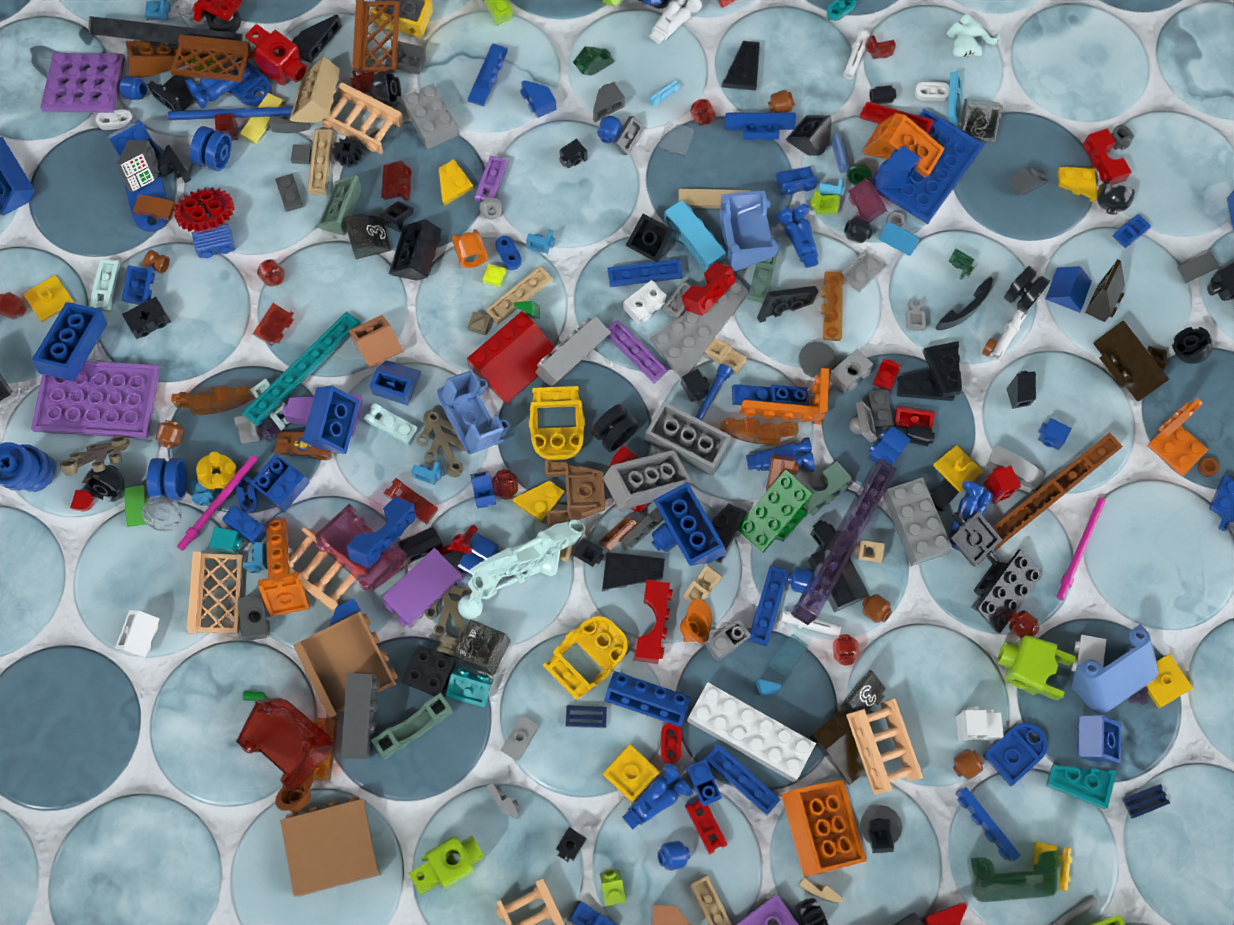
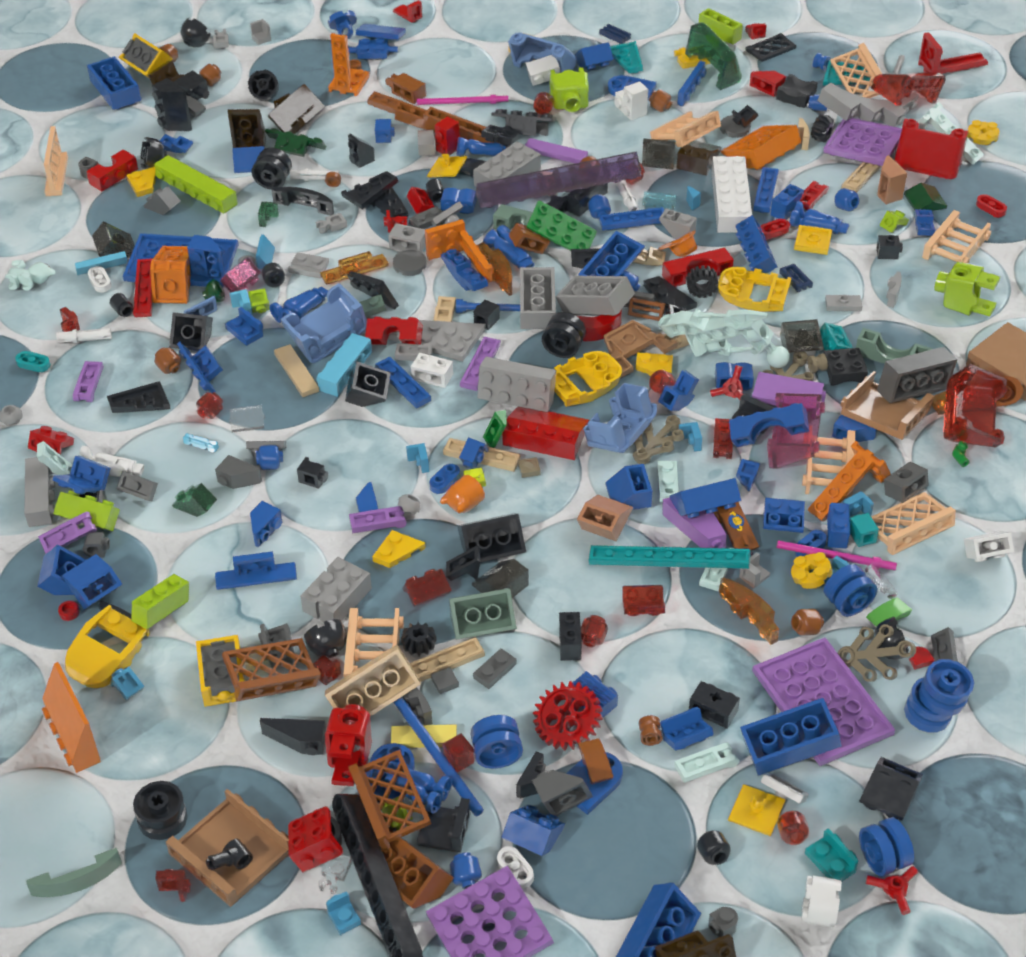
camera: 115 degrees left, 25 degrees down
(35, 245) = (713, 847): none -> black head
(42, 321) = (784, 789): none -> plate
(72, 521) = (944, 645): none -> dark grey plate
(273, 249) = (570, 636): none -> black brick
(357, 494) = (747, 473): none -> blue slope
(513, 279) = (473, 453): none -> blue brick
(517, 181) = (366, 499): none -> blue slope
(620, 605) = (702, 274): none -> black tyre
(640, 26) = (137, 486): none -> dark grey plate
(791, 38) = (88, 381): none -> medium lavender plate
(932, 596) = (556, 151): none -> medium lavender tile
(1044, 220) = (196, 184): none -> lime brick
(1077, 338) = (293, 143): none -> dark green bracket
(1130, 497) = (406, 87): none -> dark orange brick
(1132, 112) = (55, 165): none -> light nougat fence
(1185, 234) = (171, 106): none -> black slope

